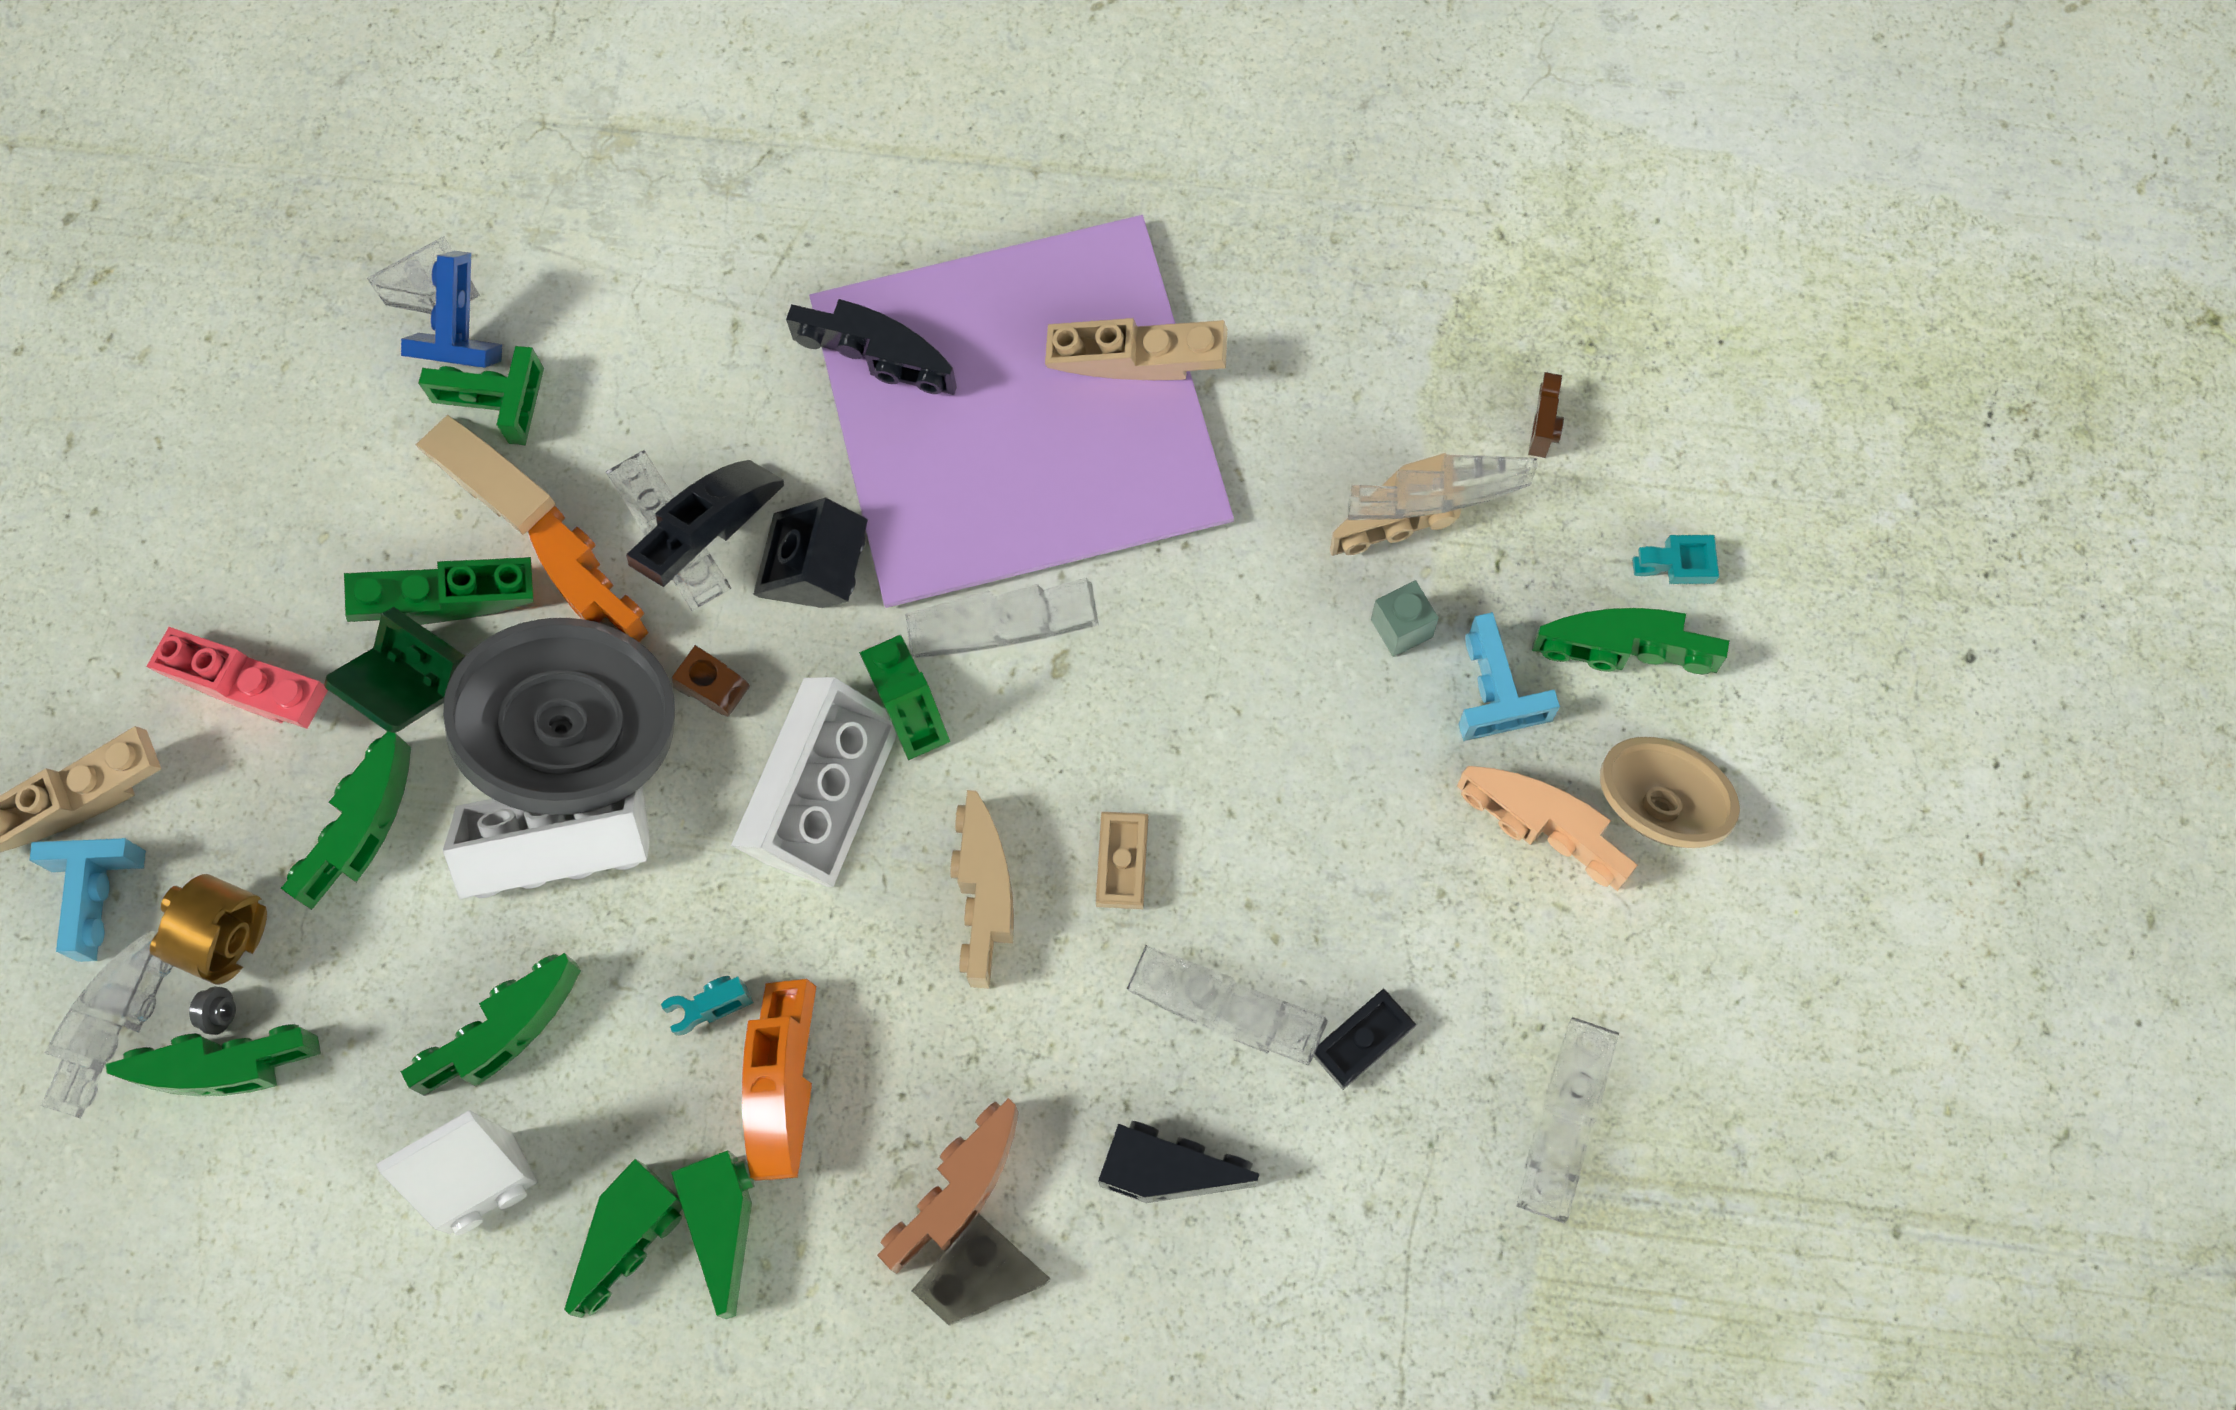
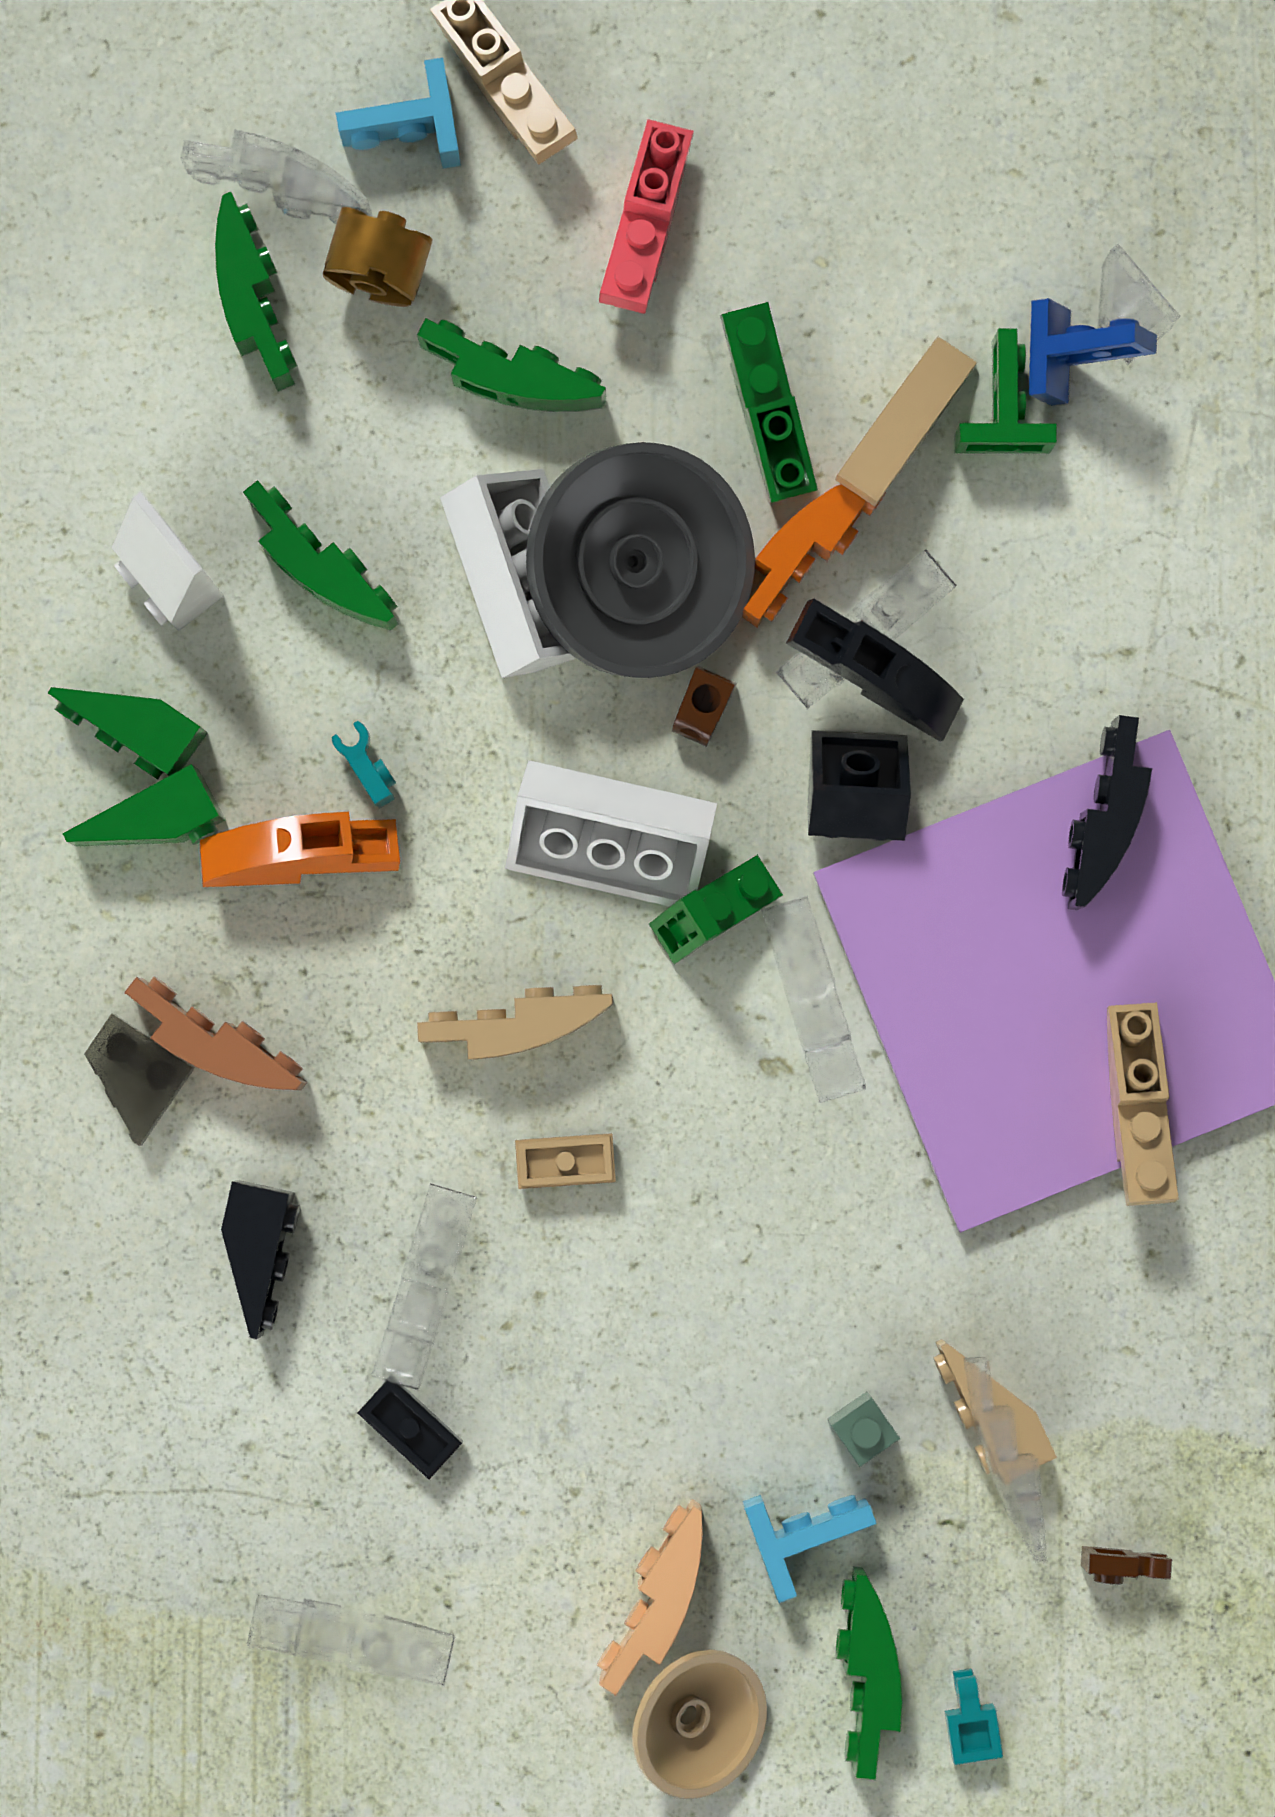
camera: 75 degrees right, 15 degrees up
(212, 1010) = (302, 278): dark grey plate -> none
(399, 676) = (666, 381): dark green bracket -> none

